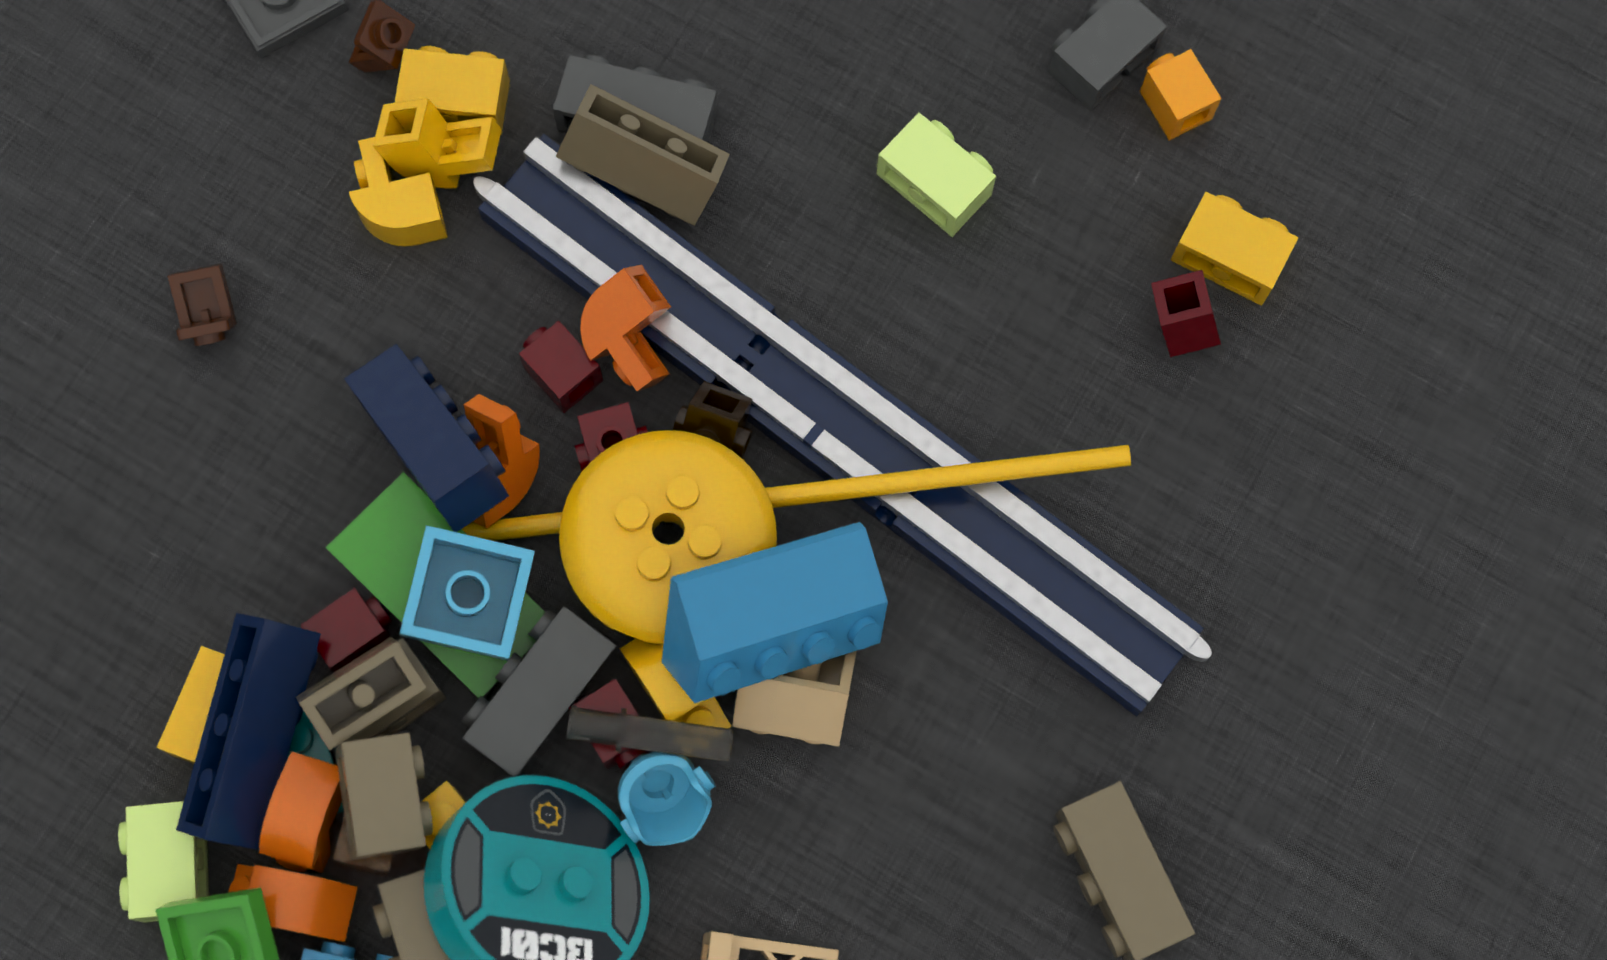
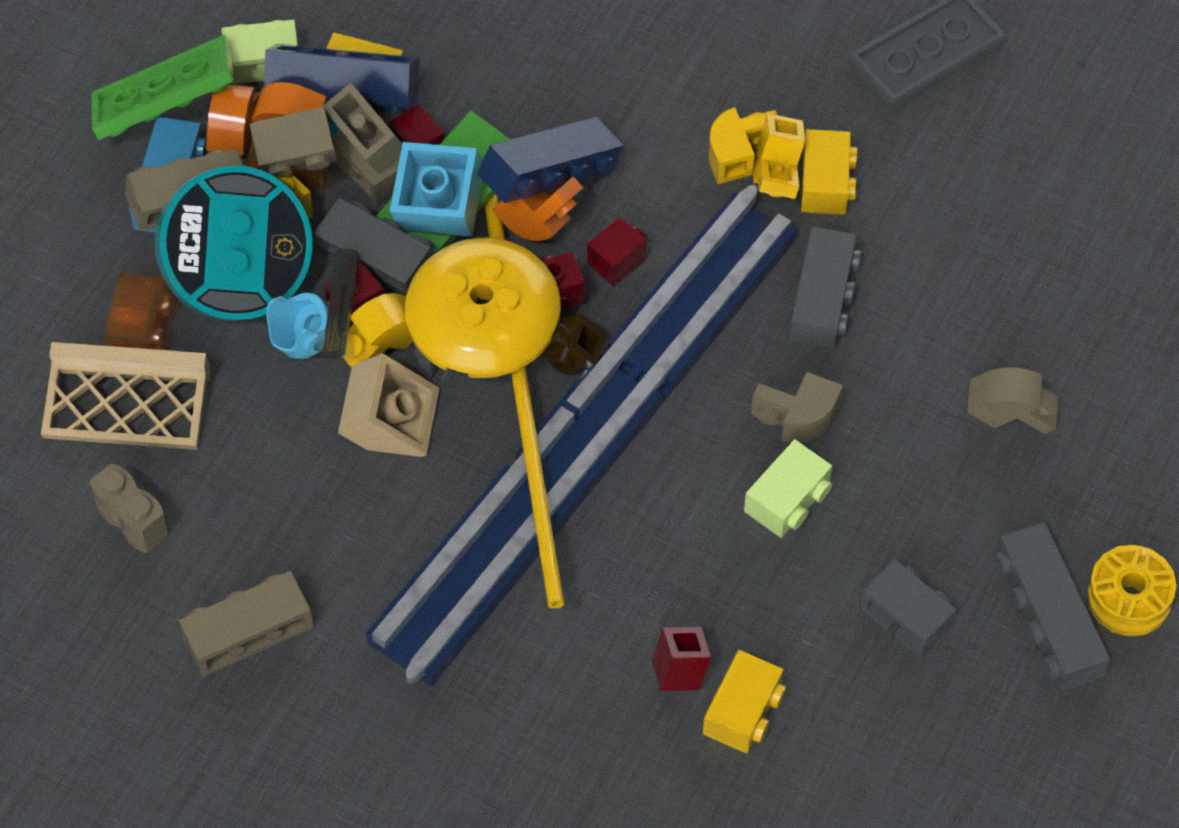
camera: 90 degrees right, 15 degrees down
(202, 304) = (649, 37): reddish brown bracket -> none
(381, 39) = (859, 118): reddish brown bracket -> none
(614, 323) = (641, 273): orange brick -> none
(642, 155) = (778, 283): dark tan brick -> none
(773, 612) = (425, 368): dark azure slope -> none
(824, 142) = (803, 415): none -> dark tan brick
(1179, 93) = (874, 661): light orange brick -> none

